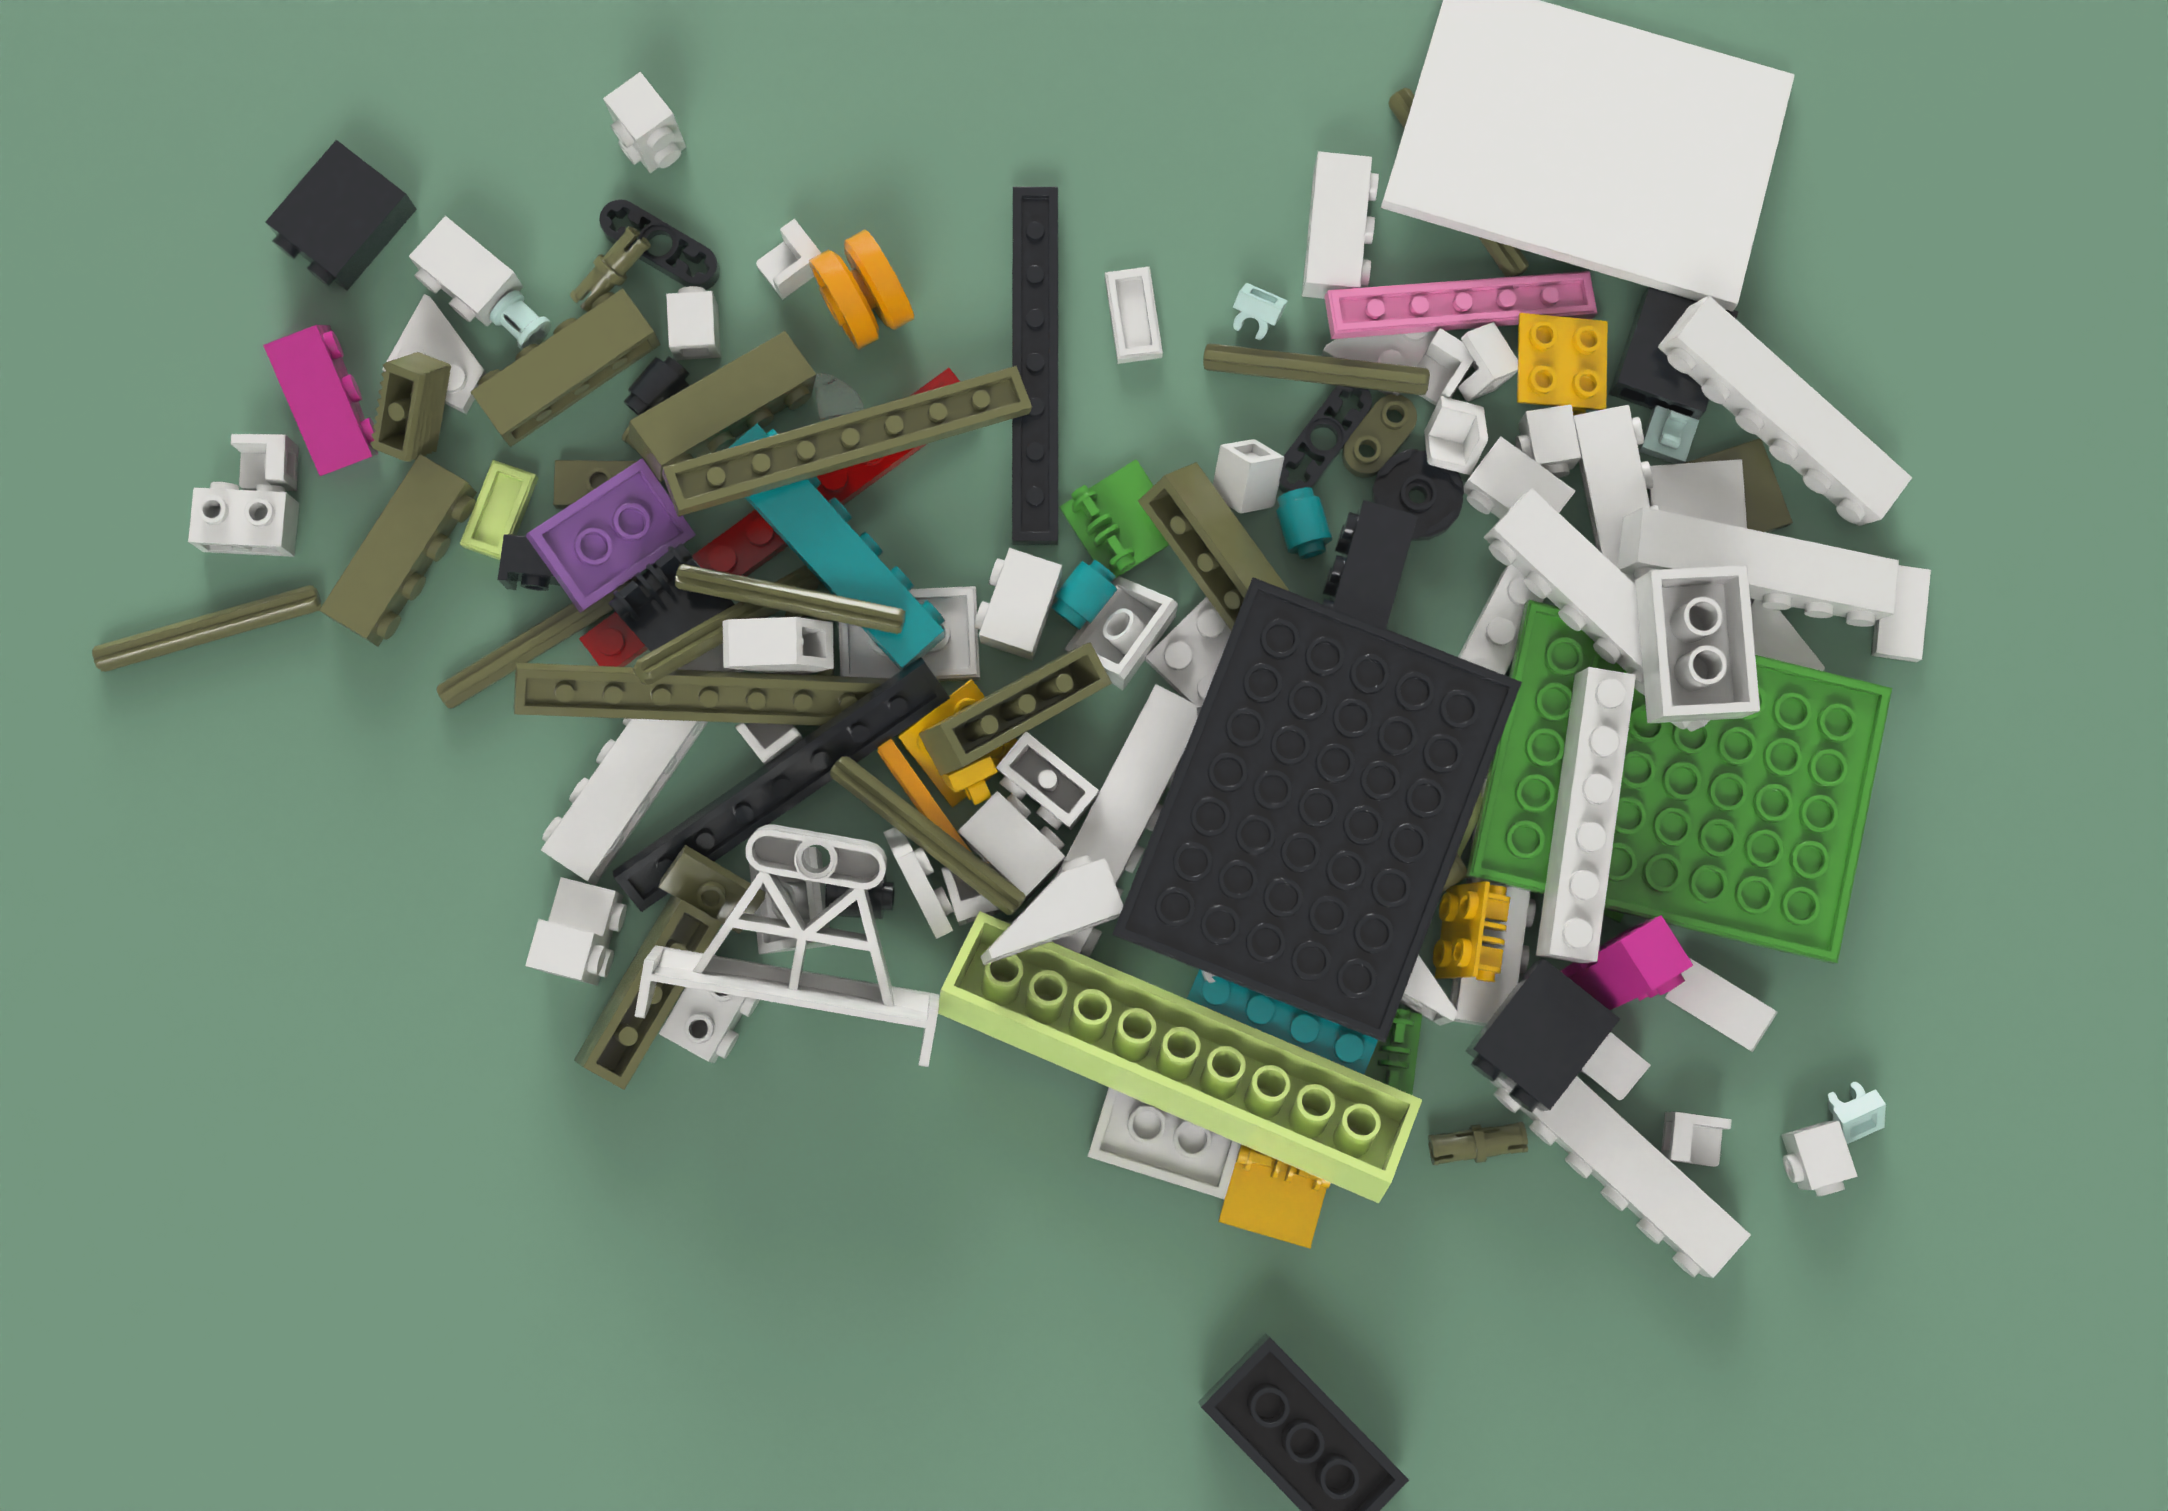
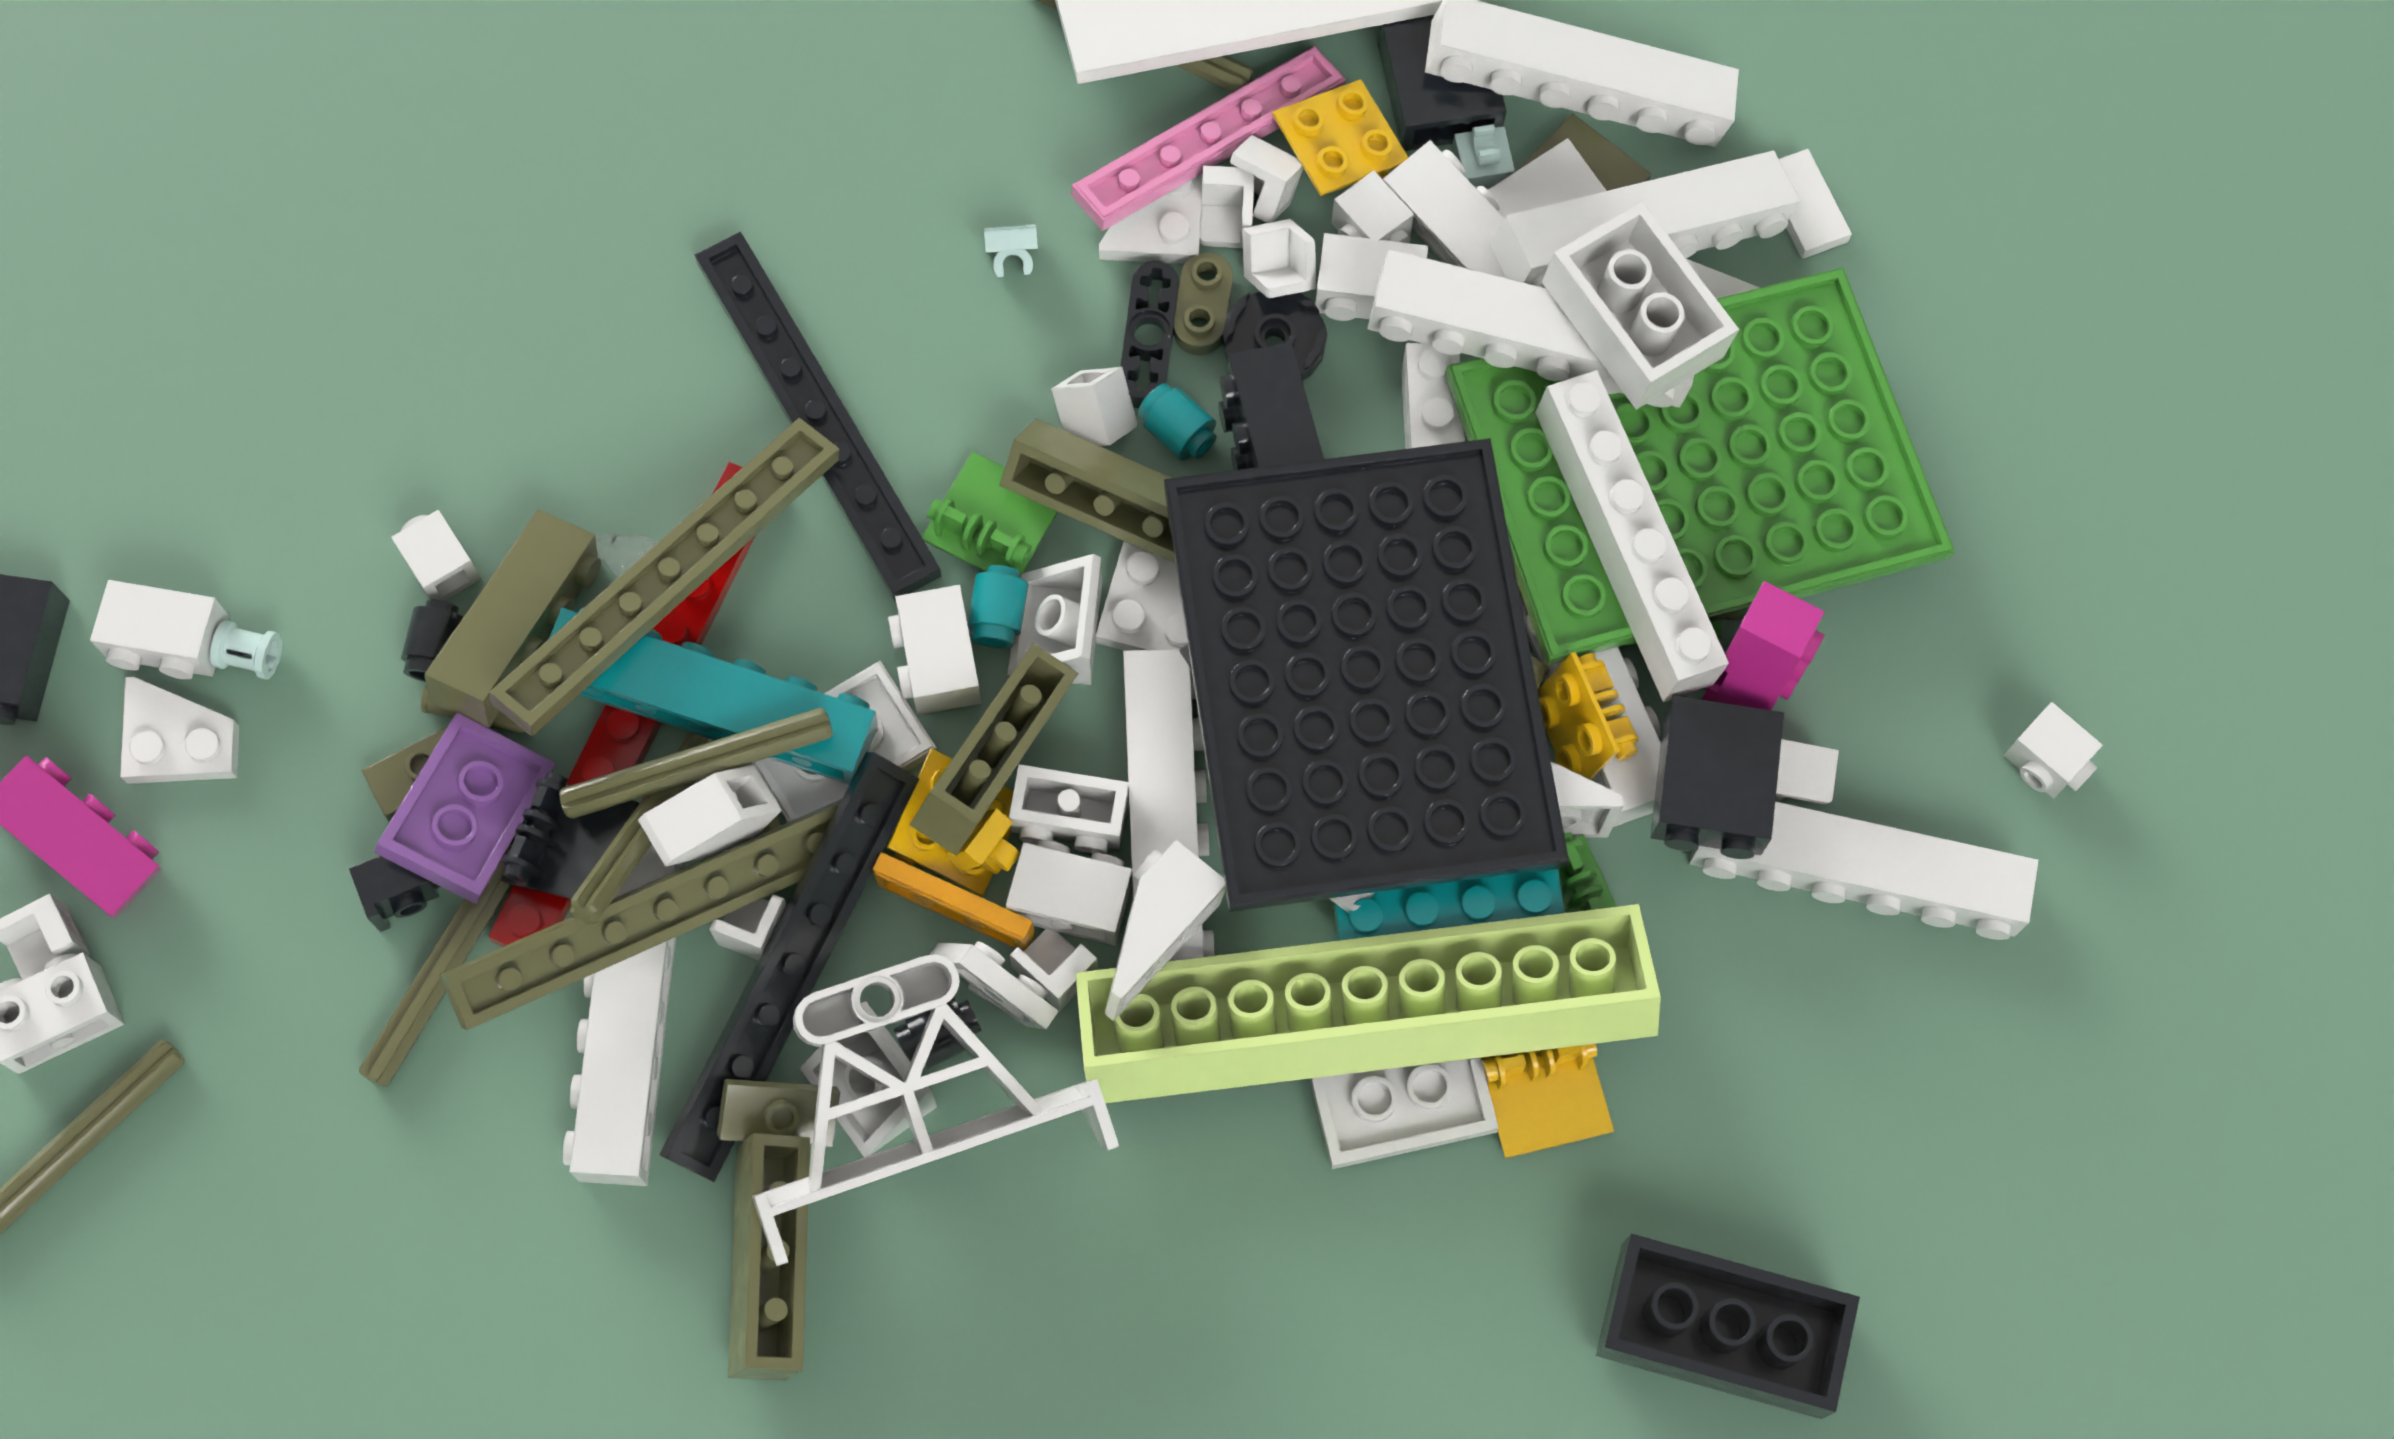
camera: 30 degrees left, 10 degrees down
(399, 551) = (241, 952): olive brick -> none
(411, 406) = (175, 791): olive brick -> none
(498, 508) = (325, 854): yellowish green tile -> none
(565, 366) = (320, 670): olive brick -> none
(578, 932) = (656, 1239): white brick -> none
(611, 268) = (316, 548): olive pin -> none
(644, 124) = (274, 383): white brick -> none
(693, 252) = (317, 483): black beam -> none
(706, 1021) = (846, 1244): white brick -> none
(788, 263) = (506, 443): white panel -> none
(866, 287) = (596, 426): light orange wheel -> none
(927, 835) = (976, 926): olive axle -> none
(1133, 315) = (888, 317): white tile -> none
(1316, 369) = (1103, 270): olive axle -> none
(1339, 224) = (1043, 124): white brick -> none
(1478, 1143) = (1716, 929): olive pin -> none
(1693, 1138) = (1922, 801): white panel -> none
(1722, 1006) = (1870, 659): white slope -> none
(1859, 1116) = (2067, 686): light aqua tile -> none

